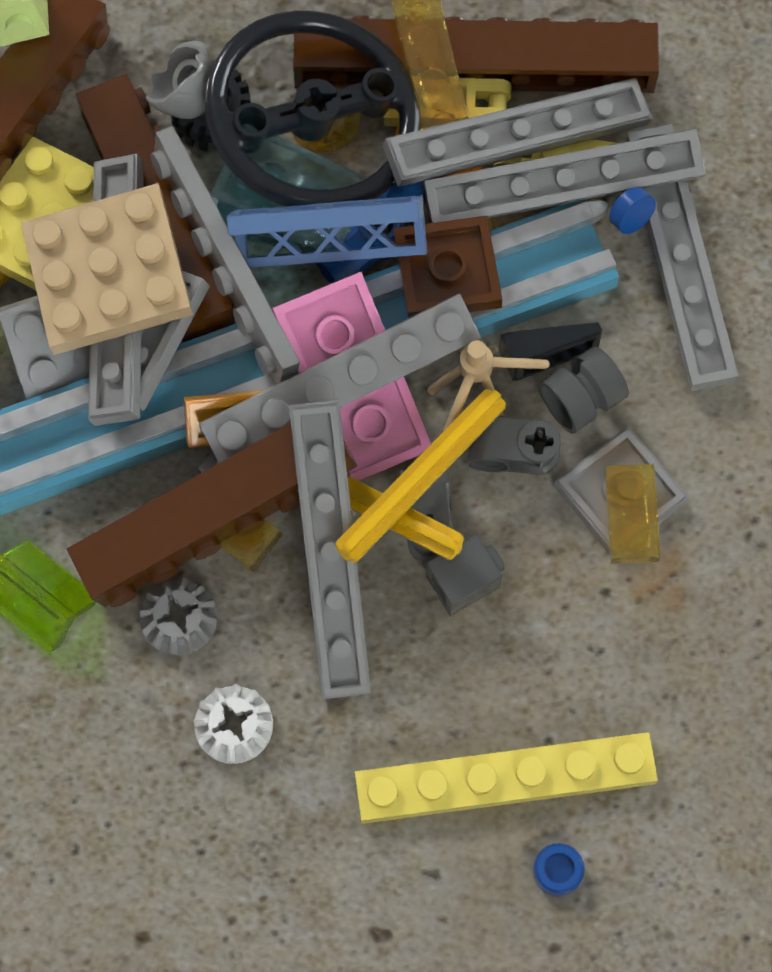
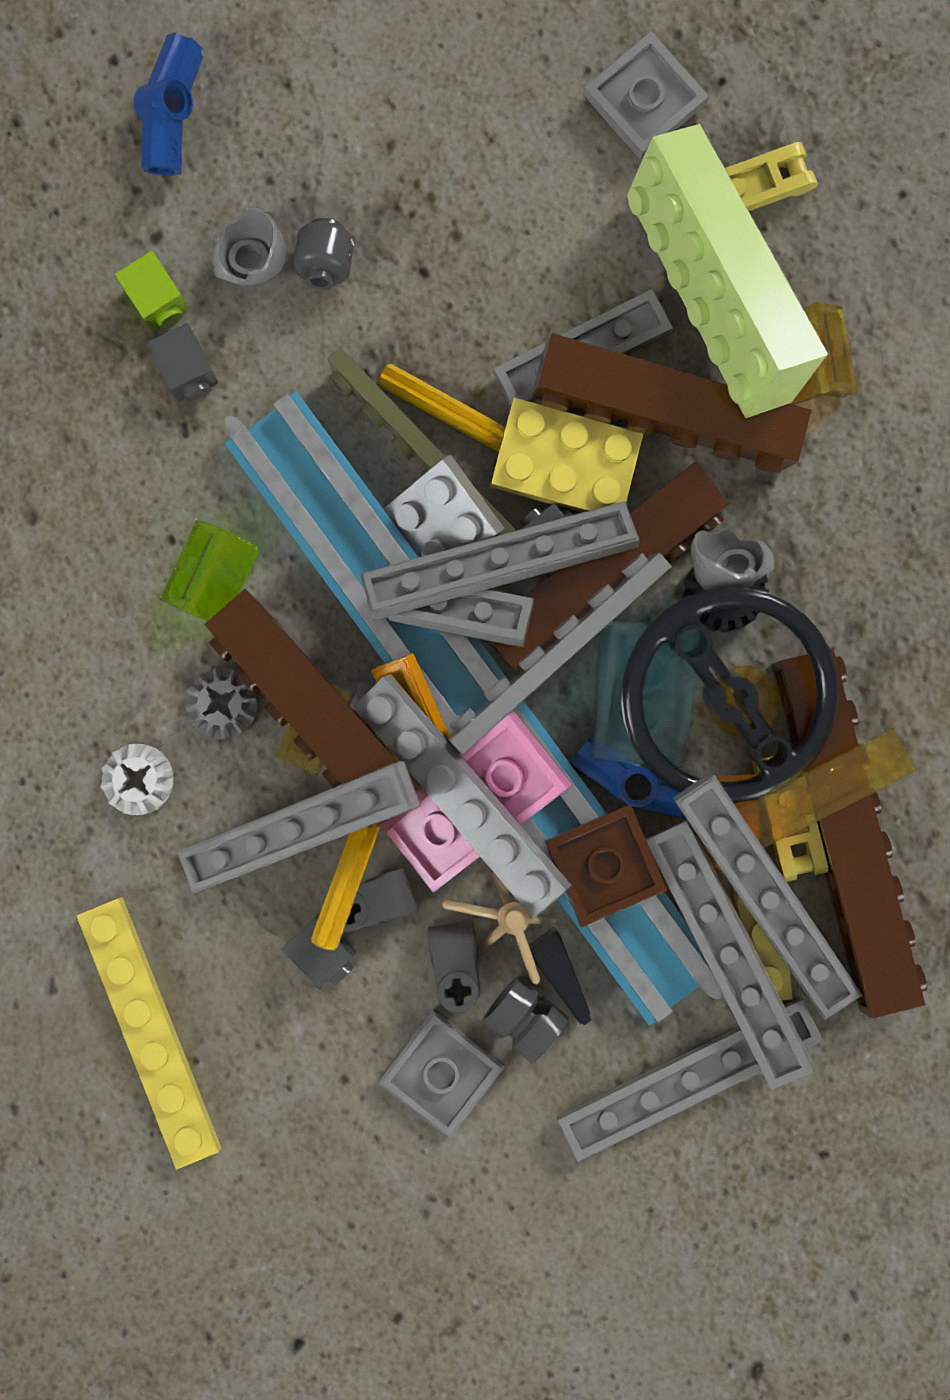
camera: 80 degrees right, 15 degrees up
(106, 269) = (508, 547): tan plate -> none
(329, 215) = (613, 745): medium blue fence -> none
(420, 476) = (384, 895): yellow axle -> none
(558, 869) = (79, 1098): blue tile -> none
(632, 210) = (717, 1025): blue tile -> none
(632, 513) = (415, 1092): clear yellow plate -> none

